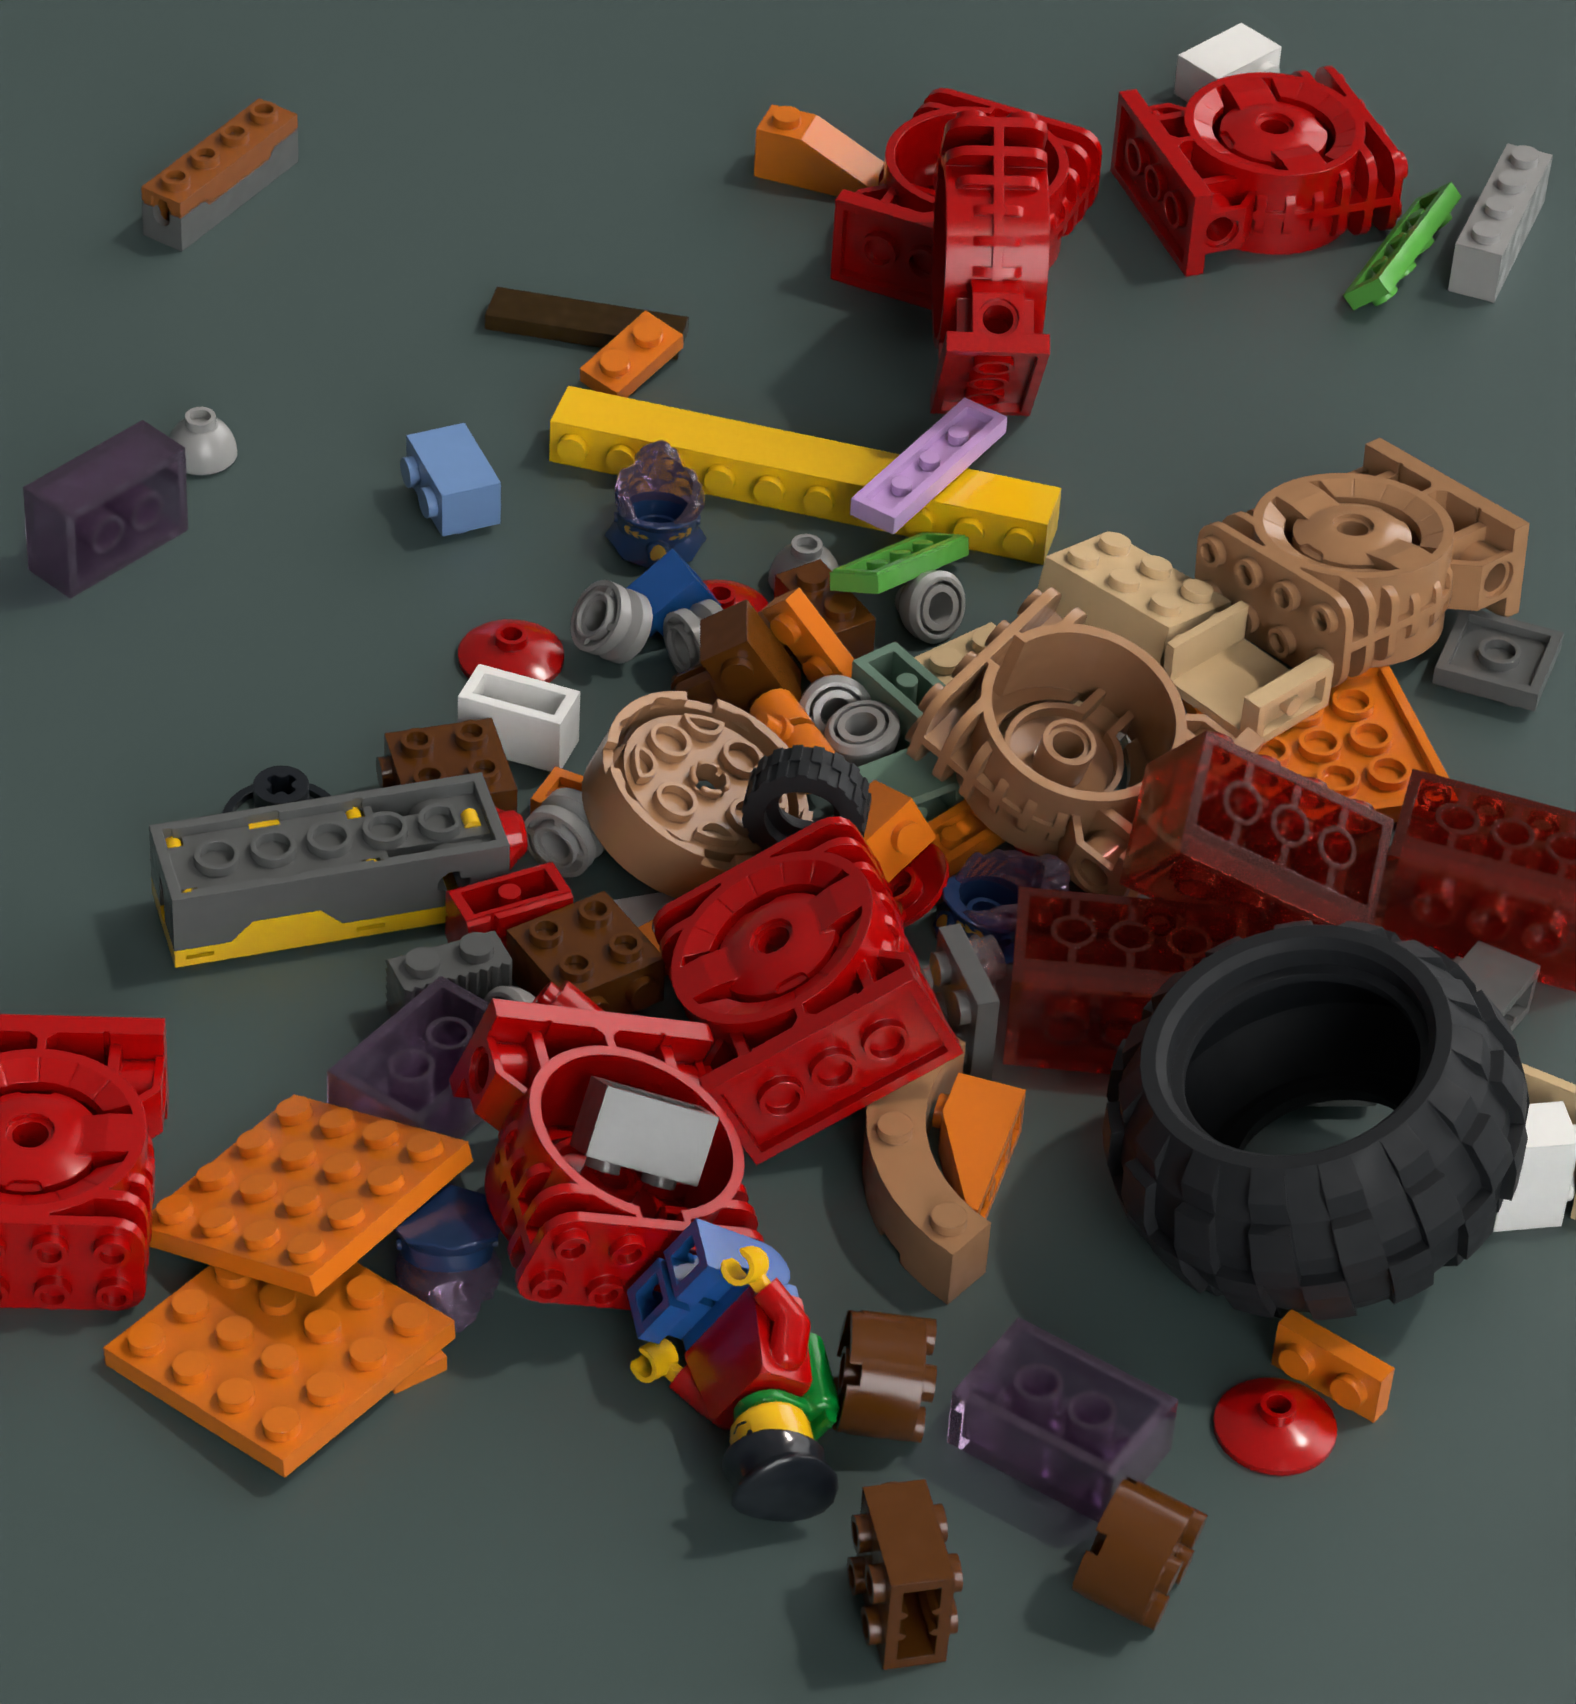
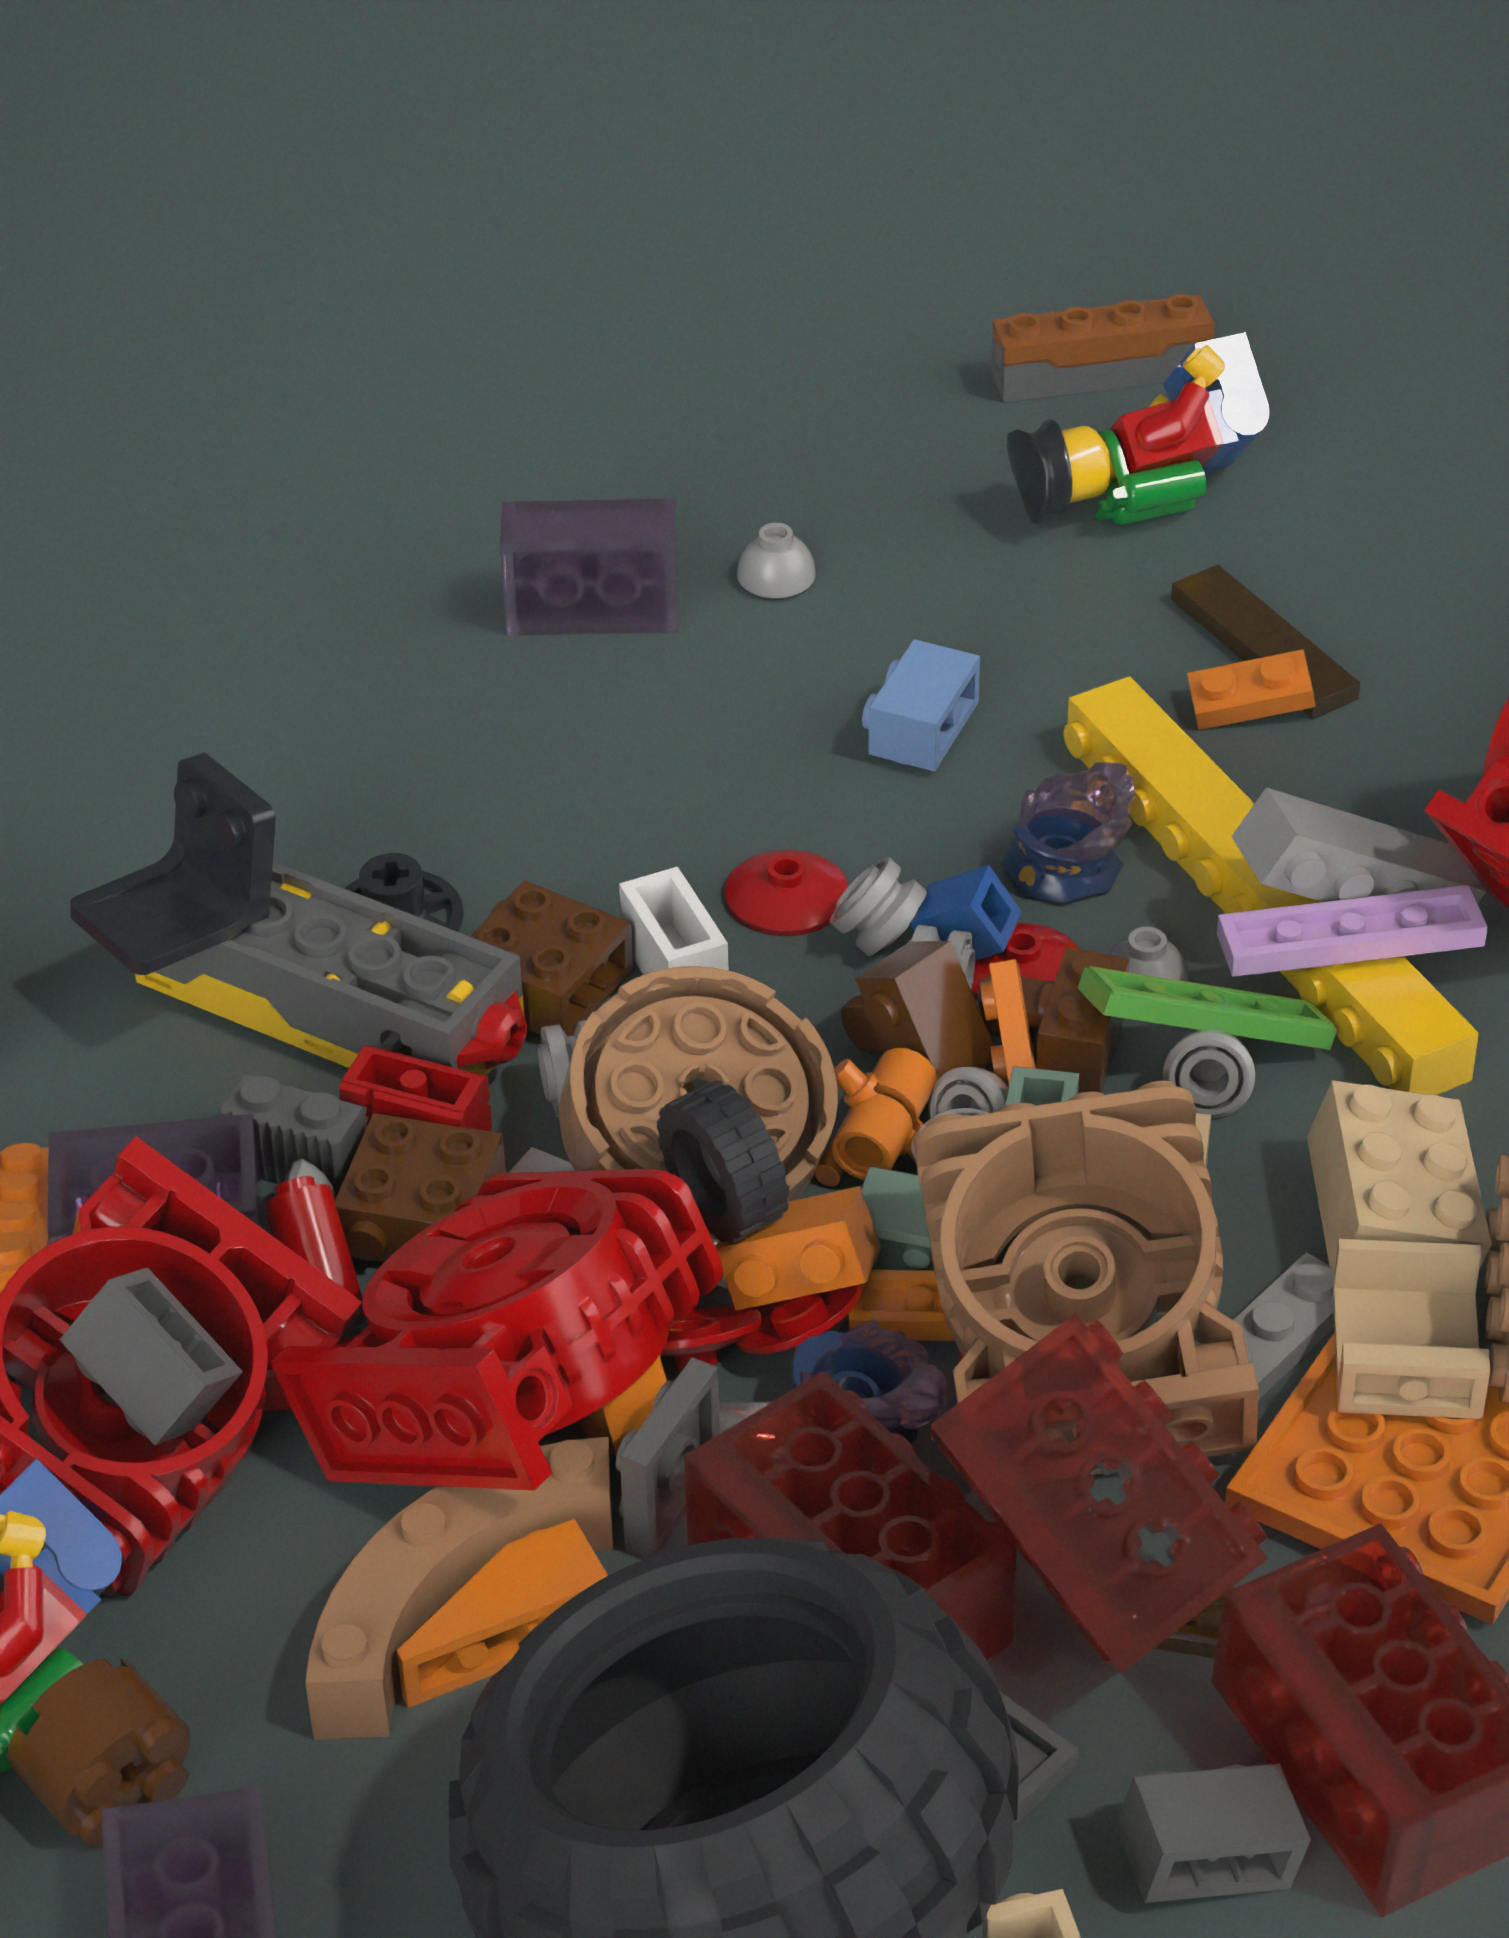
camera: 50 degrees right, 0 degrees up
(219, 838) = (203, 887): none -> black piece
(380, 237) = (1152, 457): none -> piece
(877, 420) = (1341, 854): none -> light grey brick

